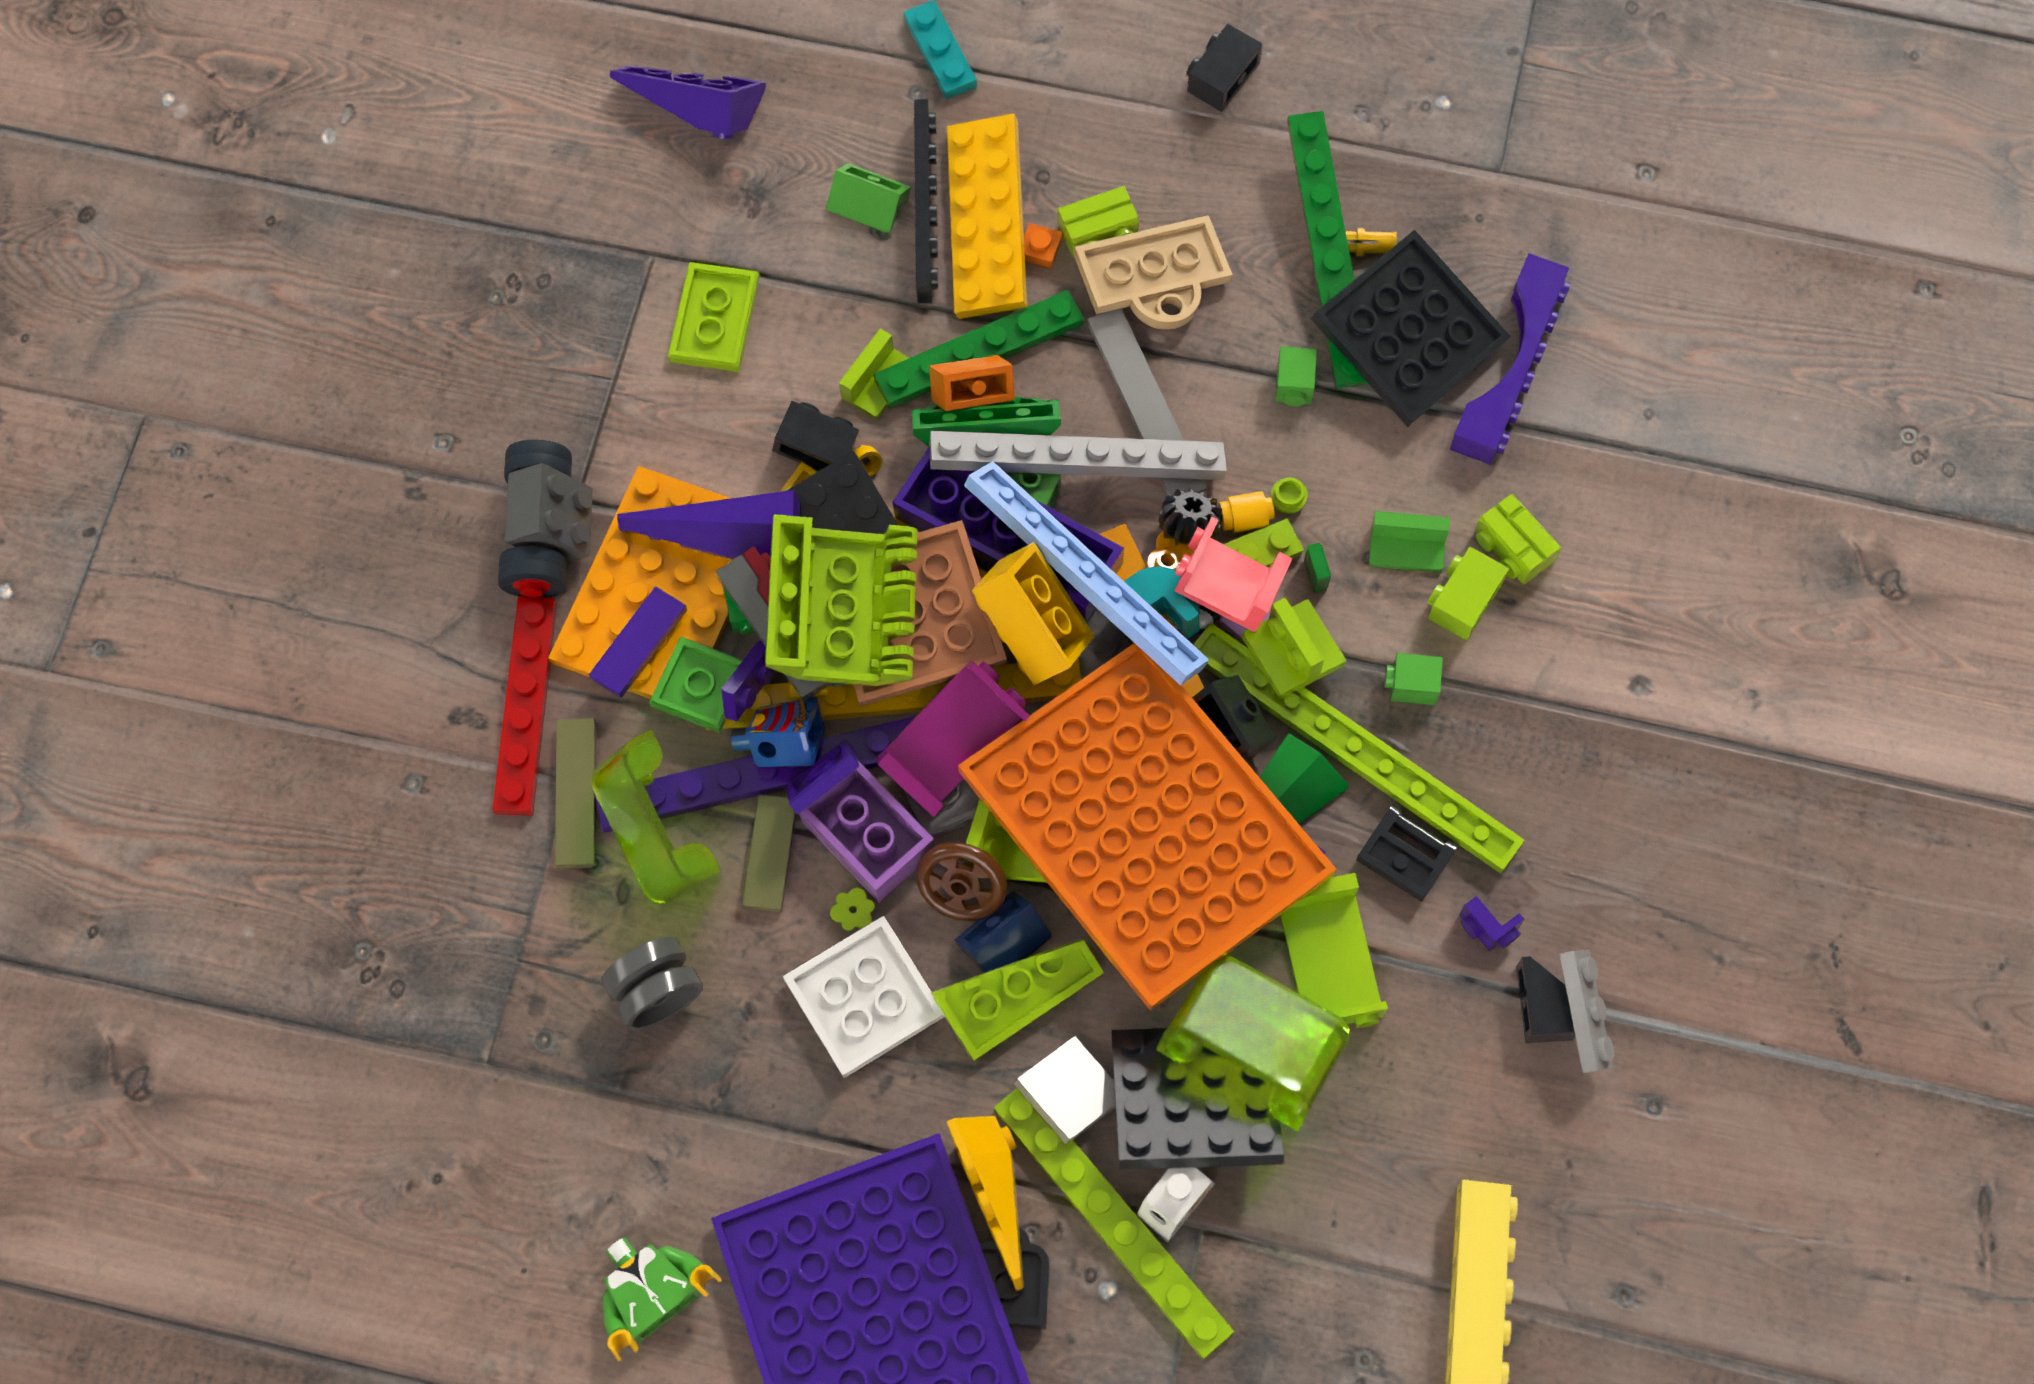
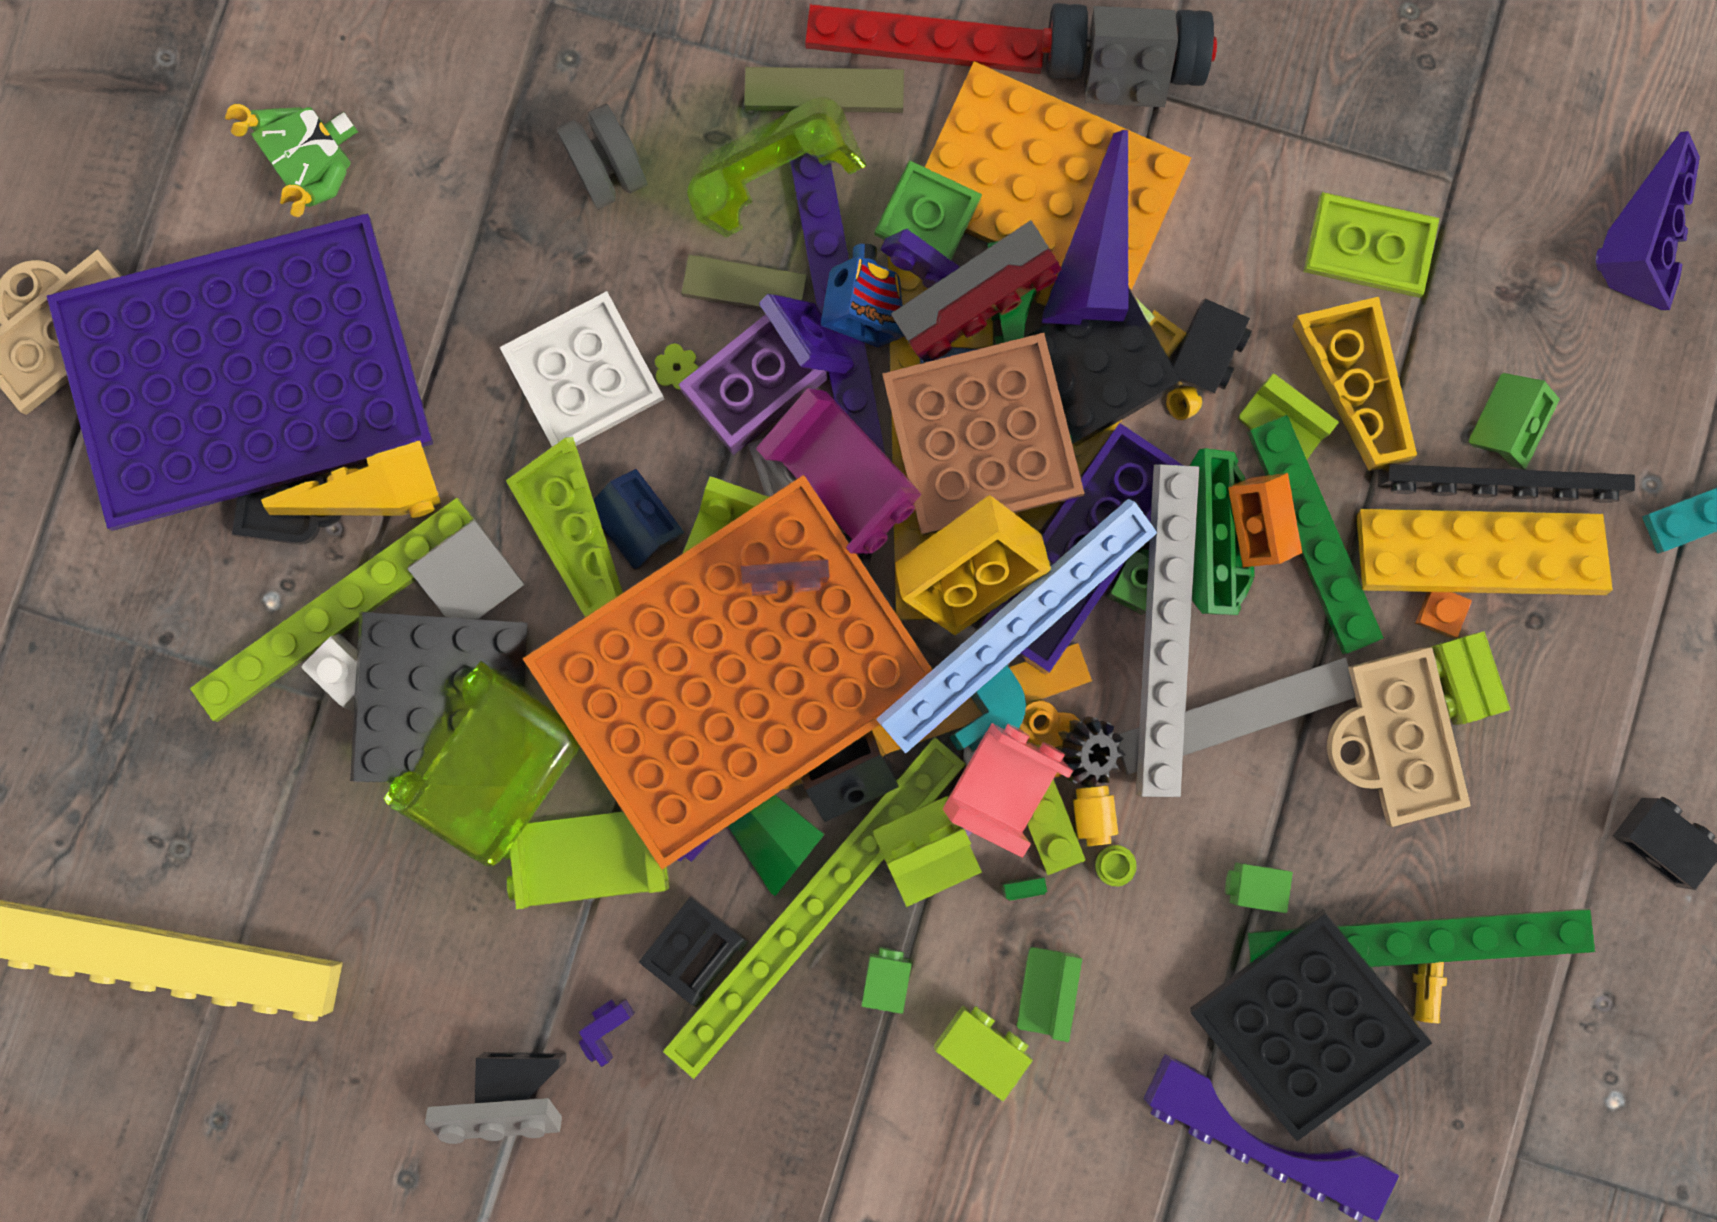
camera: 90 degrees right, 15 degrees up
(638, 642) = (980, 151): dark purple tile -> none
(840, 313) = (1361, 377): none -> yellow wedge
(840, 603) = (984, 346): lime slope -> none
(961, 881) = (688, 476): reddish brown plate -> none
(1059, 768) = (804, 576): none -> plate
(1517, 539) = (1043, 1115): lime brick -> none

